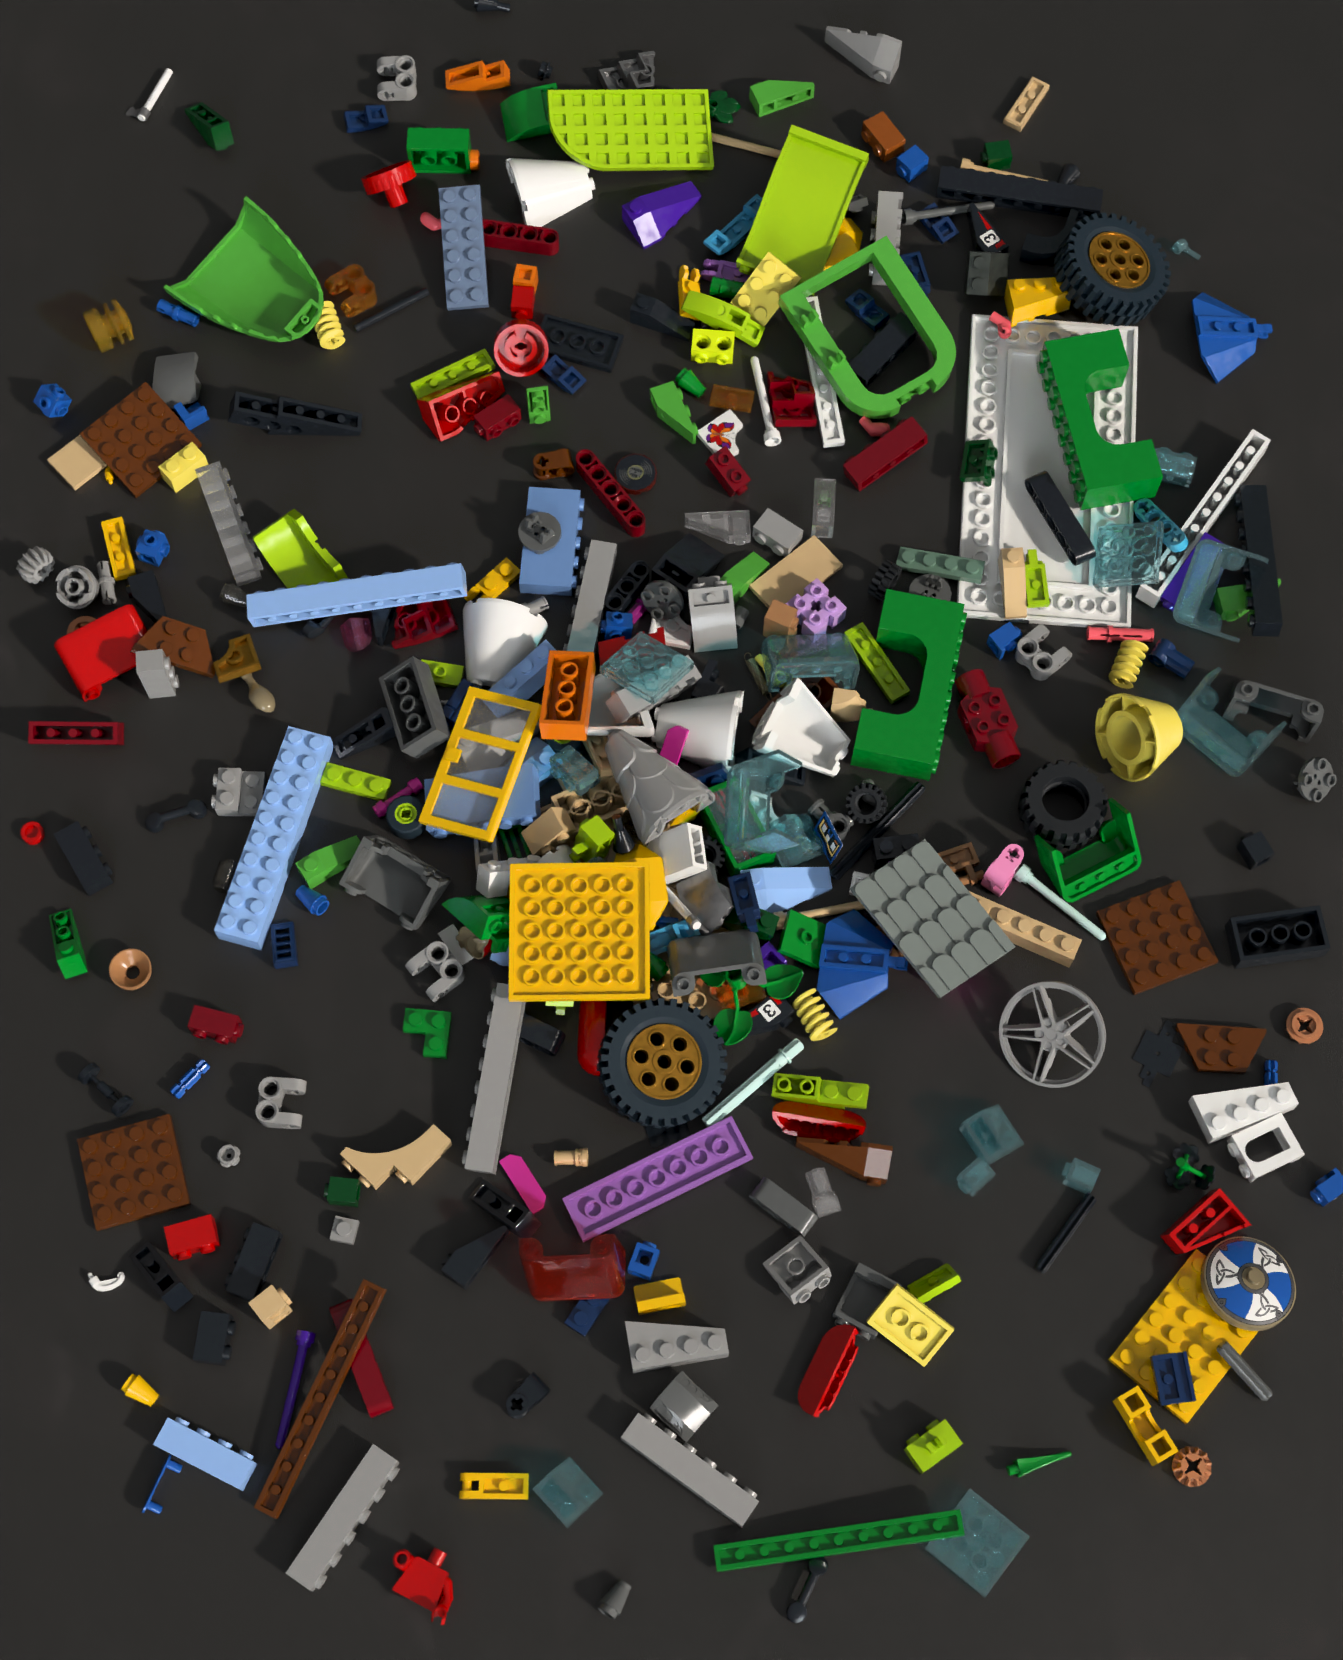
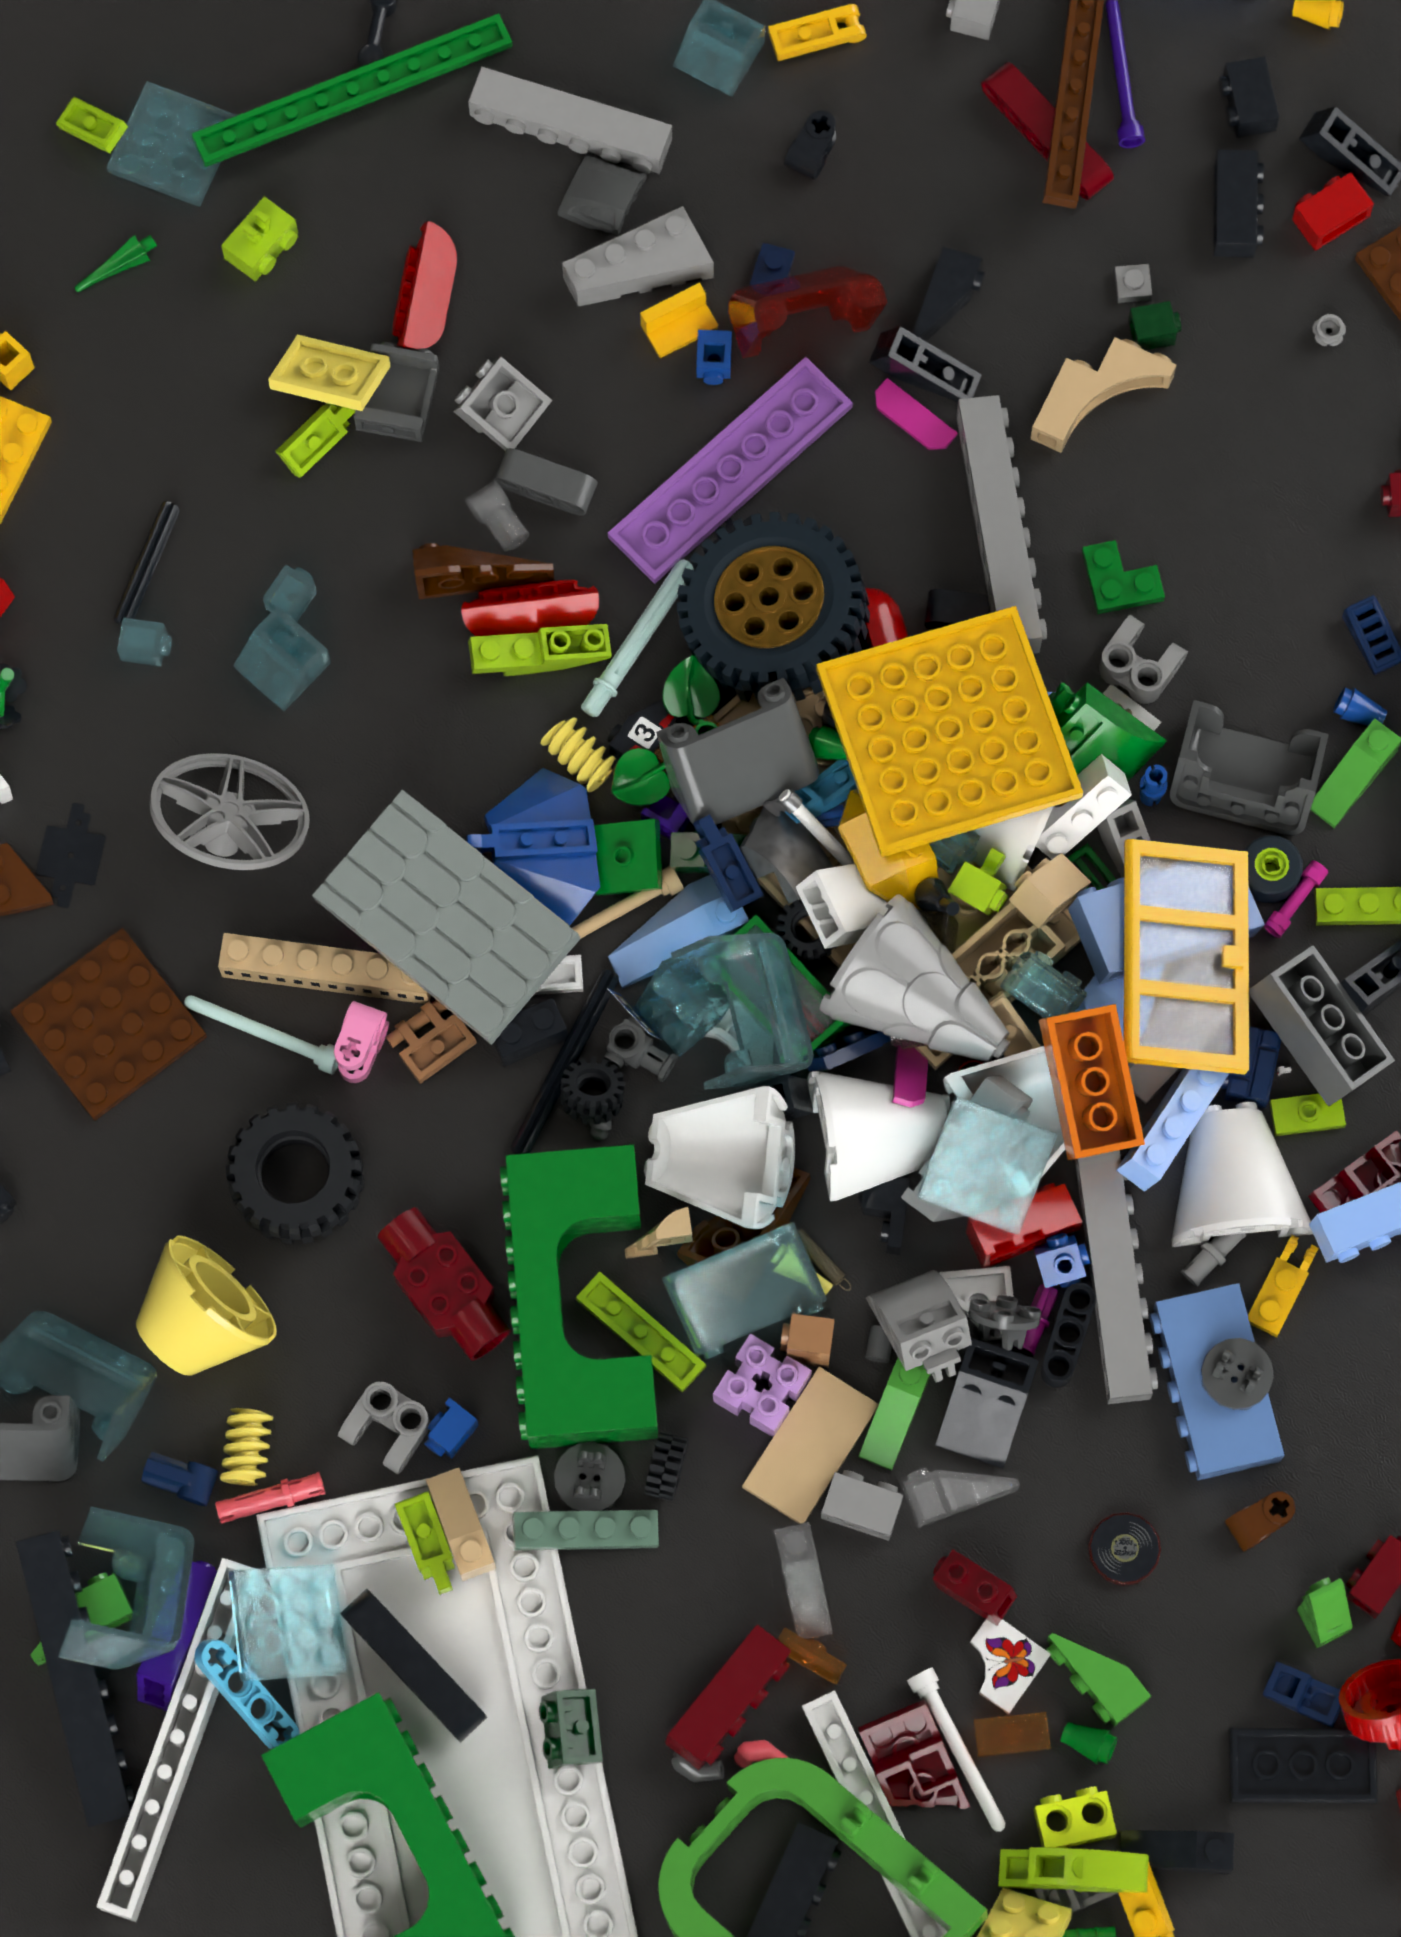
camera: 165 degrees right, 5 degrees up
(271, 1306) = (1189, 147): tan brick -> none
(284, 1086) = (1276, 394): light grey piece -> none
(459, 882) = (1153, 785): none -> blue pin
(573, 1157) = (849, 466): tan pin -> none
(609, 484) = (1160, 1512): dark red beam -> none
(831, 466) = (813, 1656): none -> clear orange plate
(1032, 1575) = (91, 125): none -> lime plate
(1096, 864) = (223, 1102): green windscreen -> none
(1176, 467) = (250, 1827): clear light blue brick -> none

